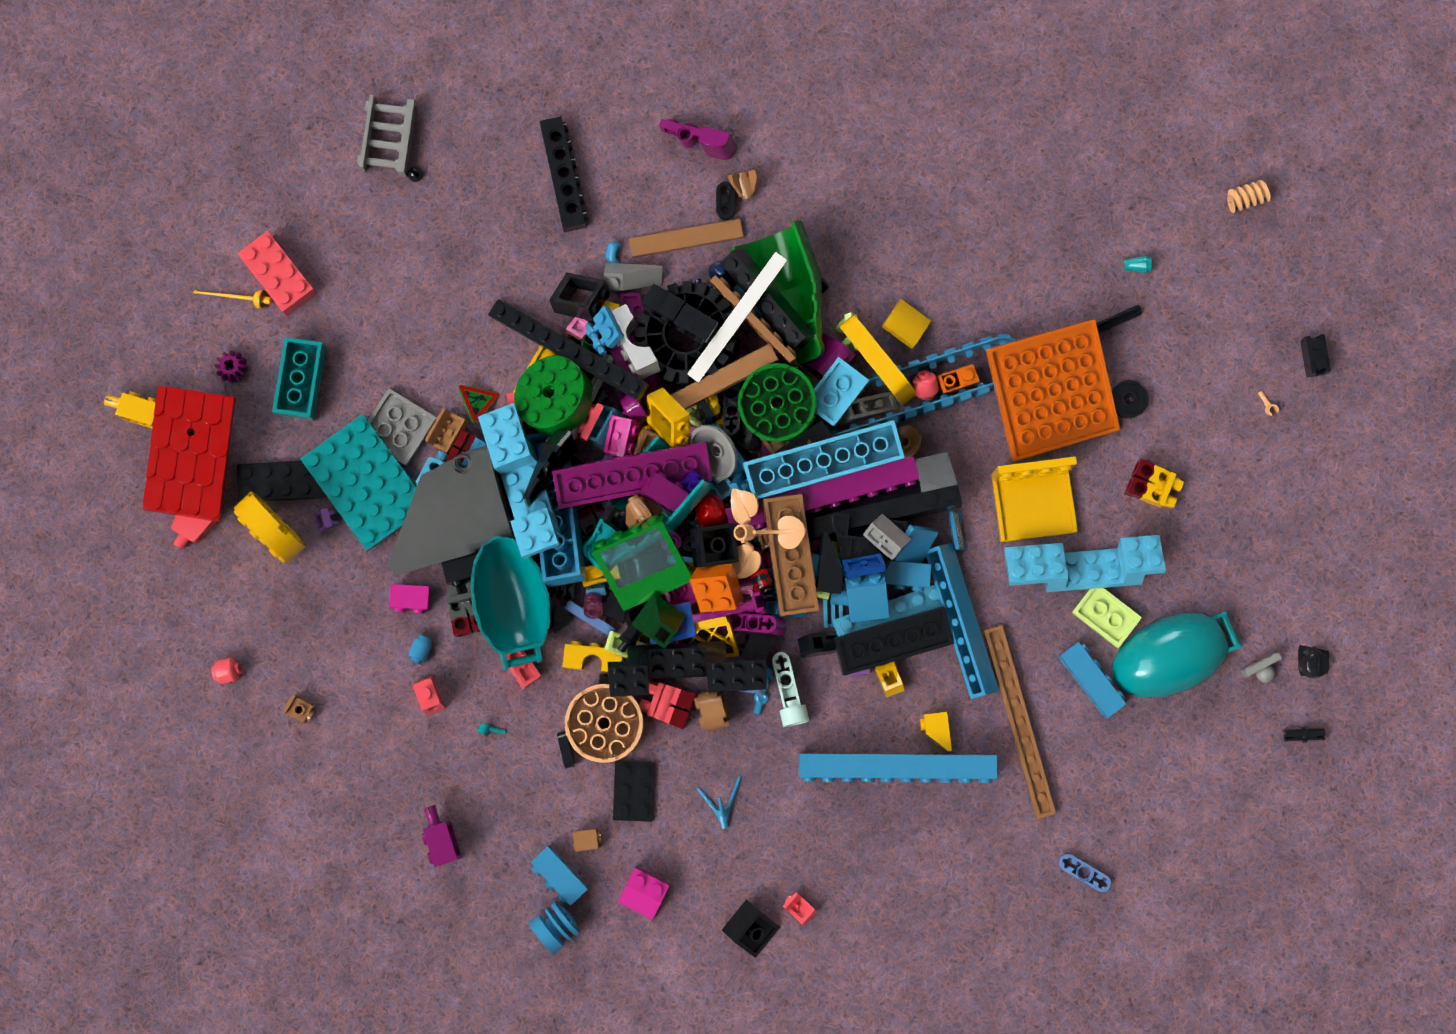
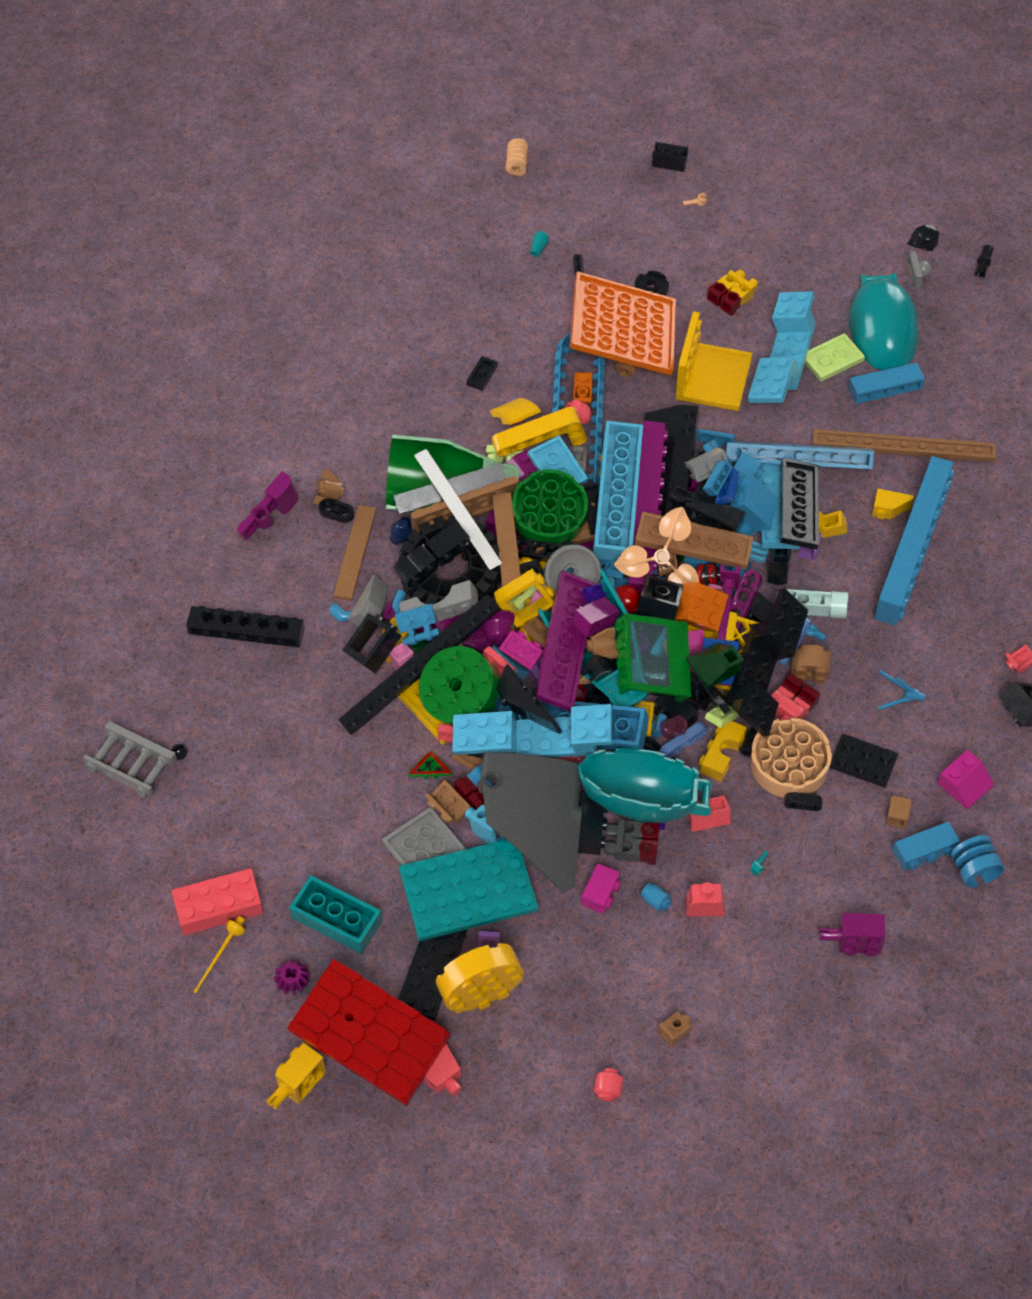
camera: 70 degrees left, 25 degrees down
(634, 303) = (400, 596): none -> dark azure arm
(869, 553) = (717, 478): none -> dark azure piece
(945, 272) = (482, 373): none -> black plate

